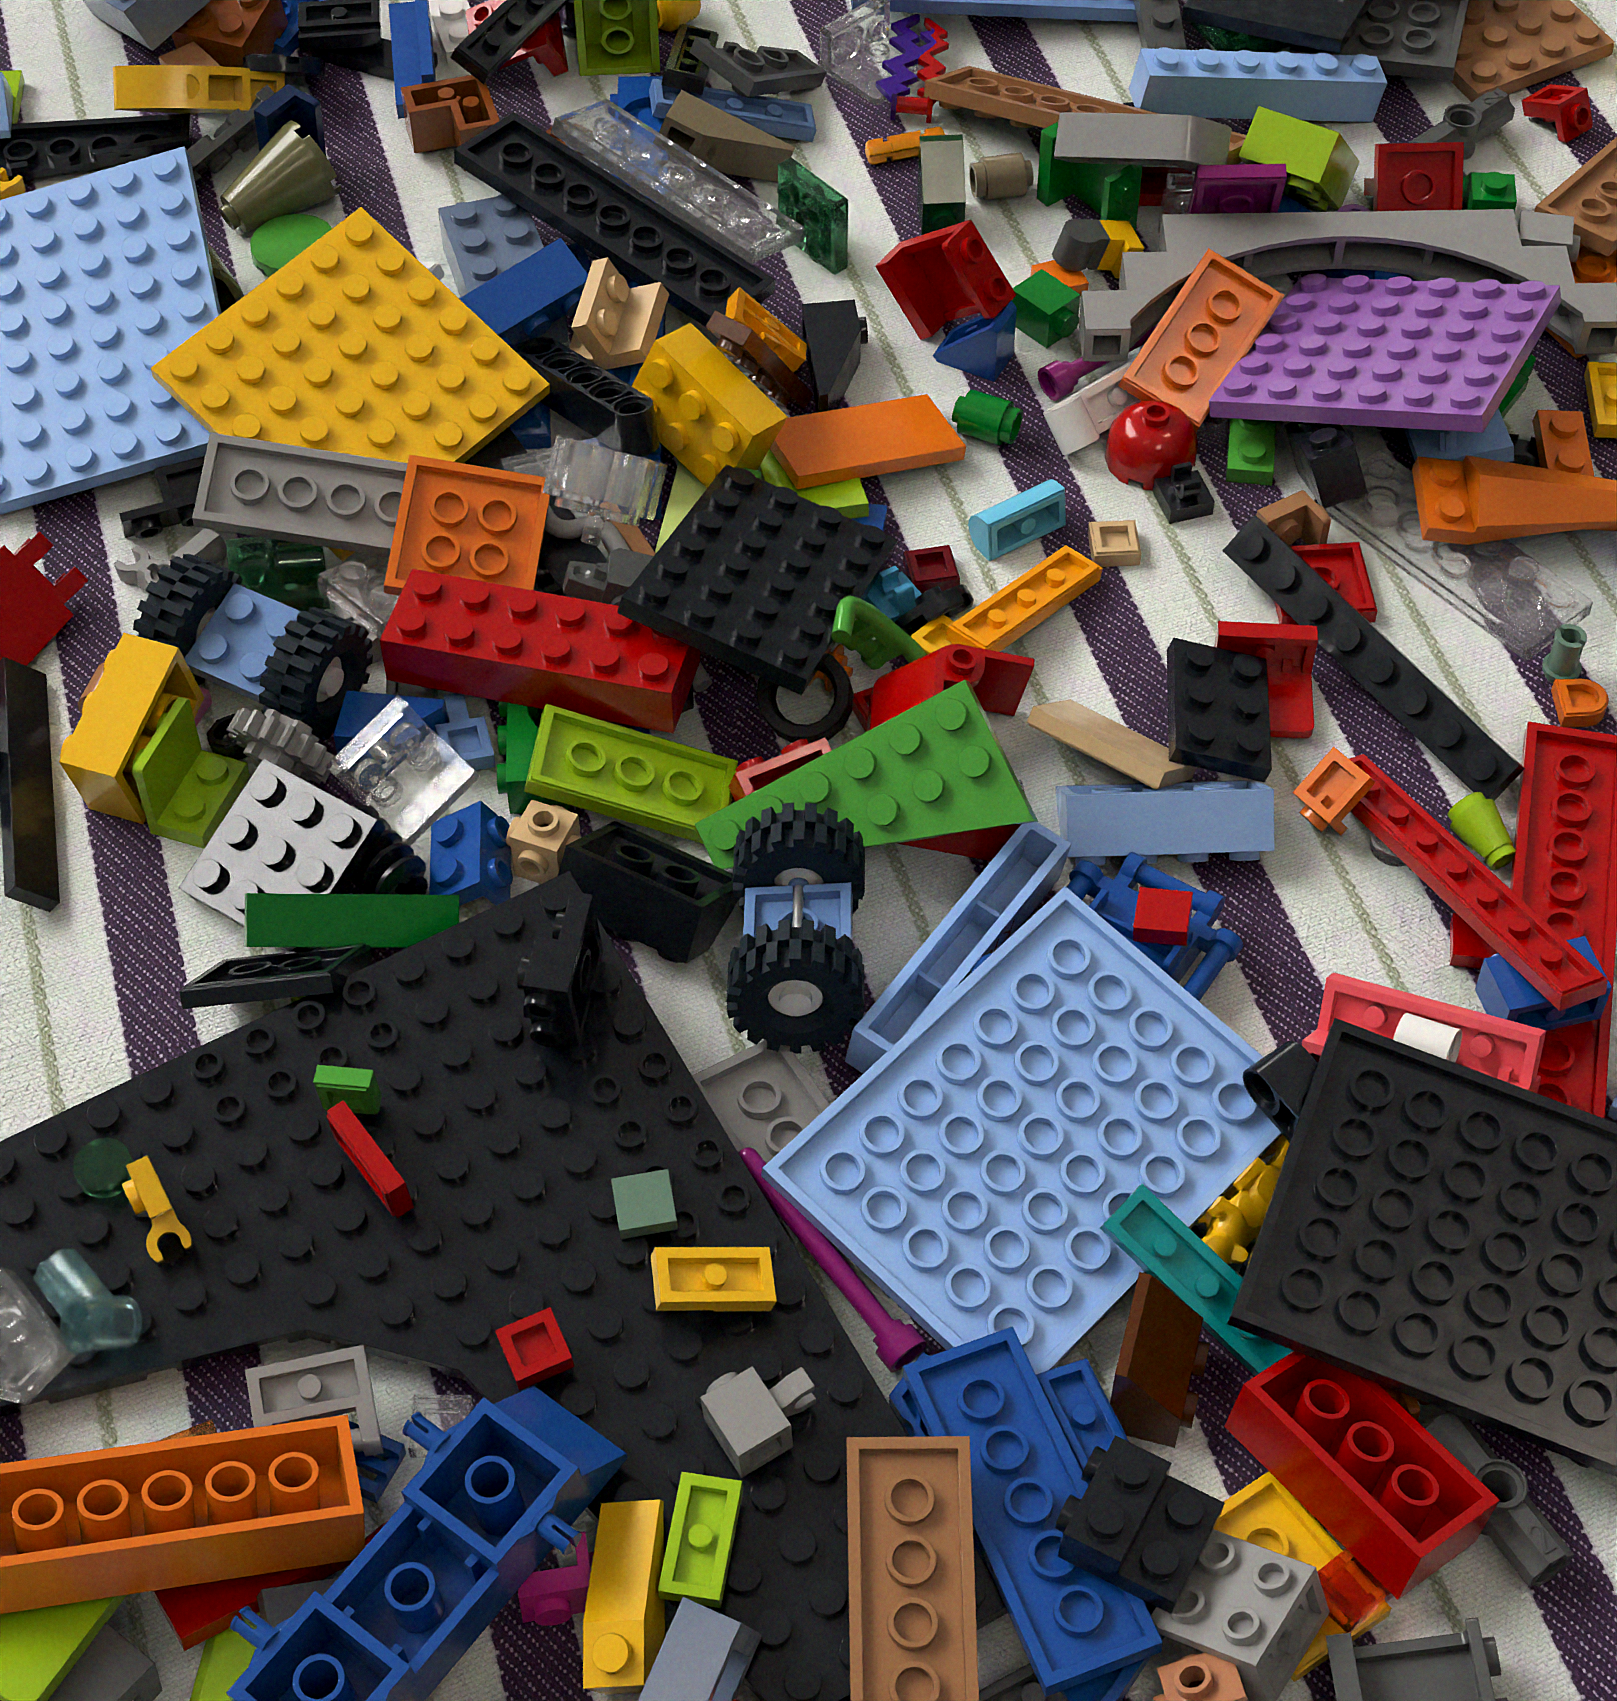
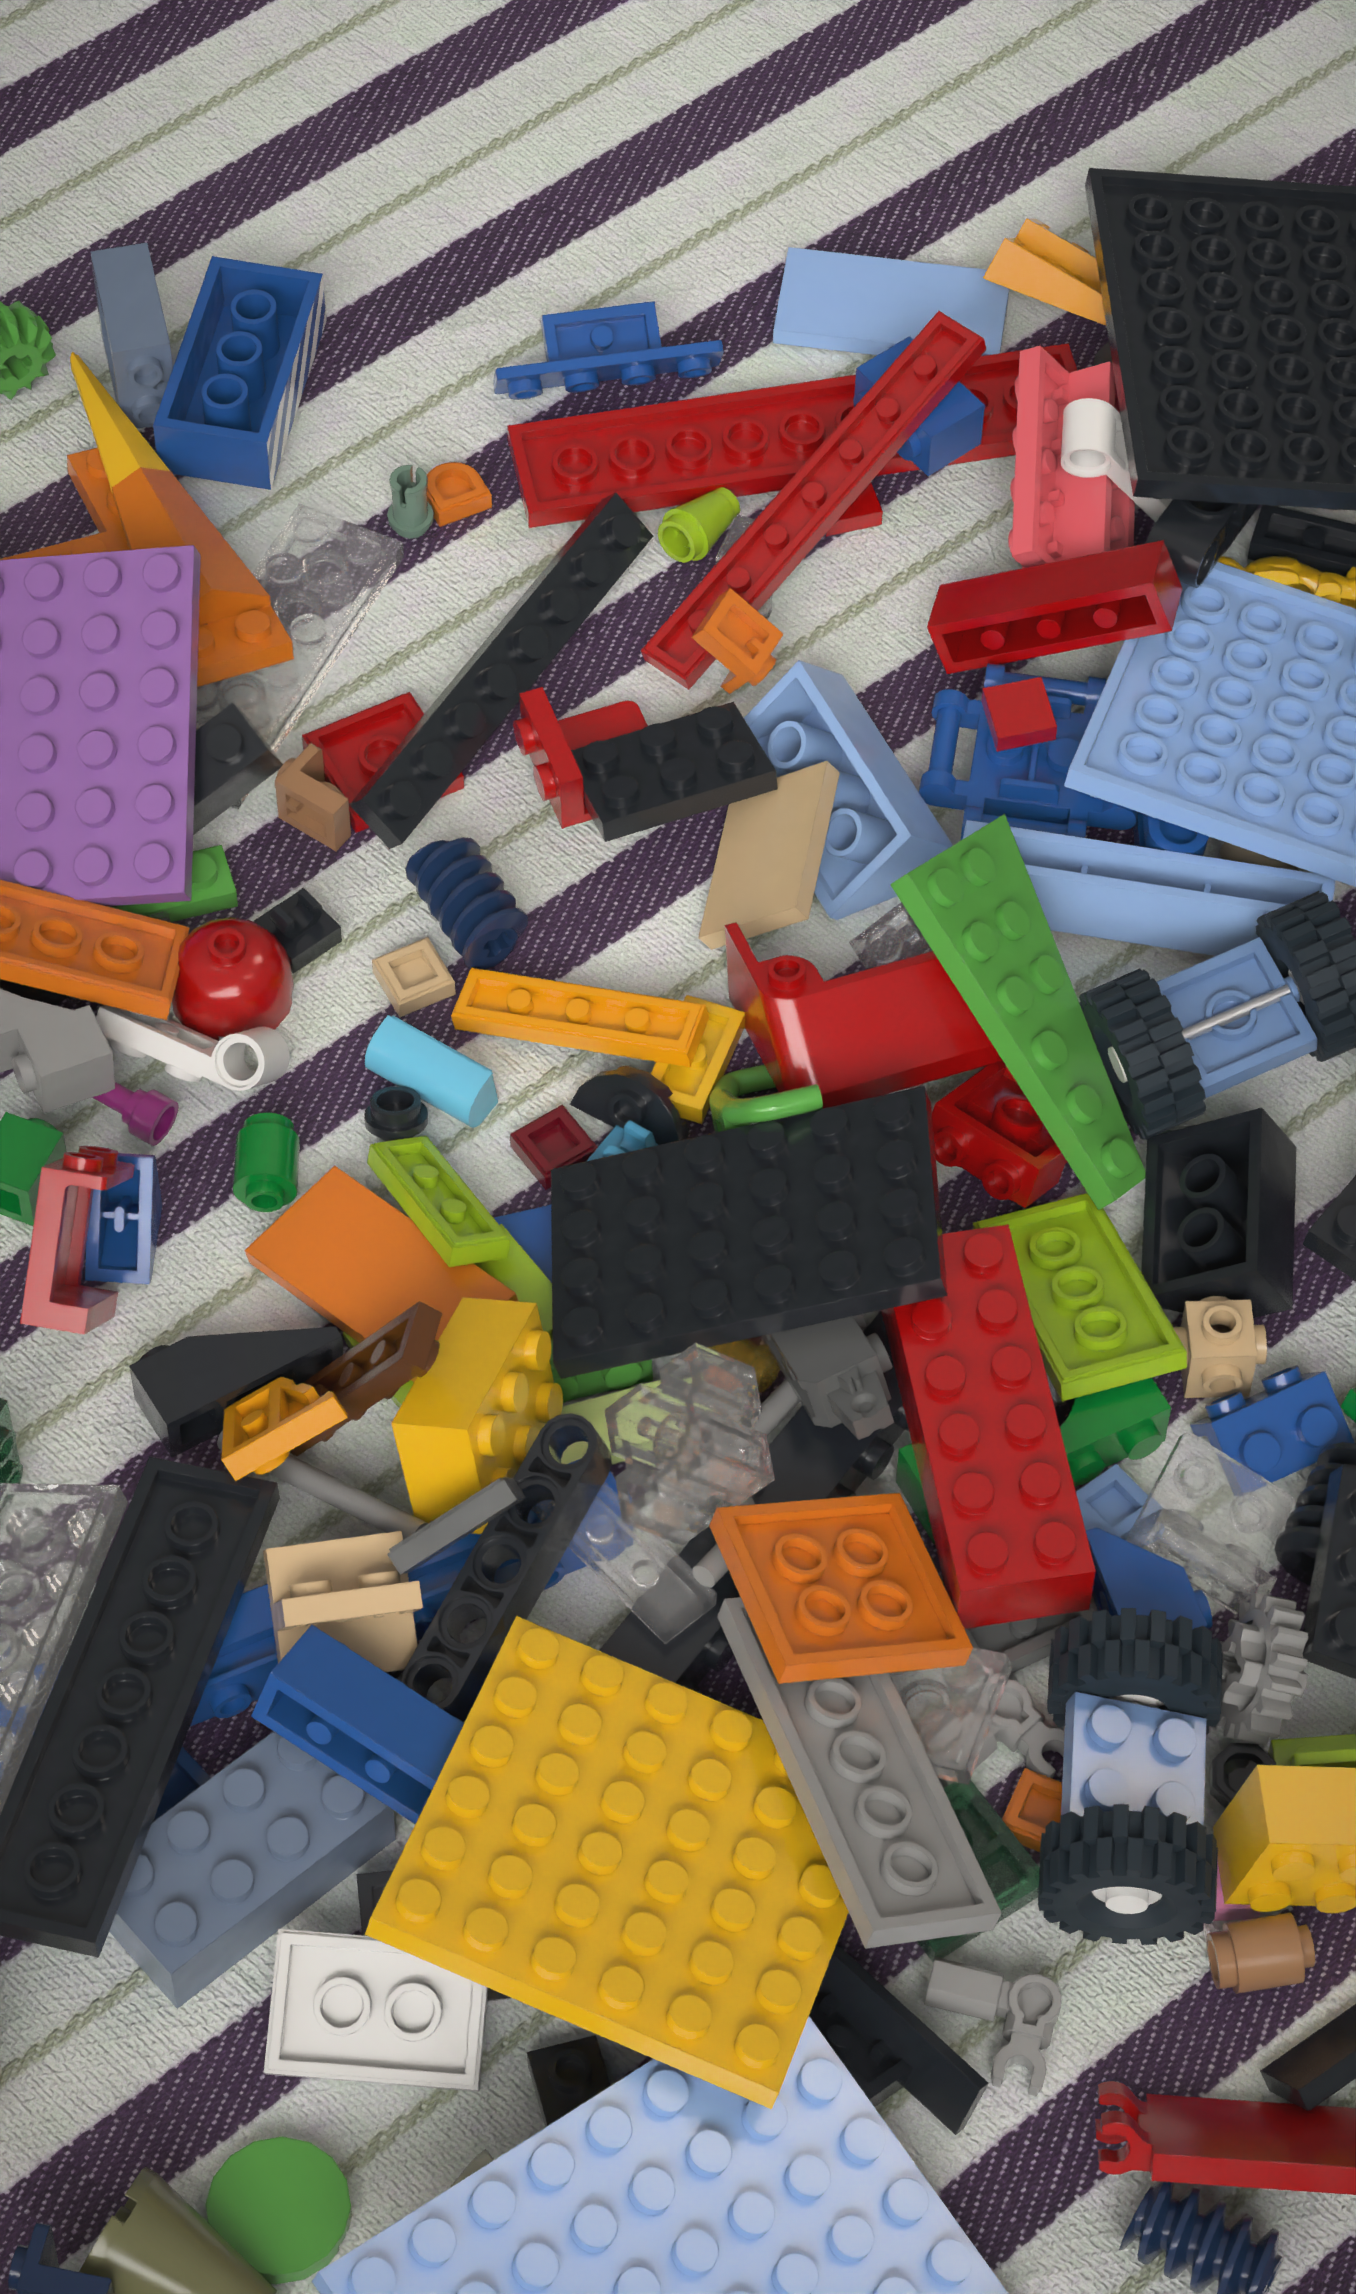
camera: 115 degrees left, 5 degrees up
(609, 344) = (455, 1524): none -> dark grey tile
(903, 476) = (438, 1201): none -> lime tile
(992, 488) = (395, 1114): none -> black plate
(1155, 571) = (467, 900): none -> dark blue piece
(1265, 983) = (1055, 607): none -> red brick

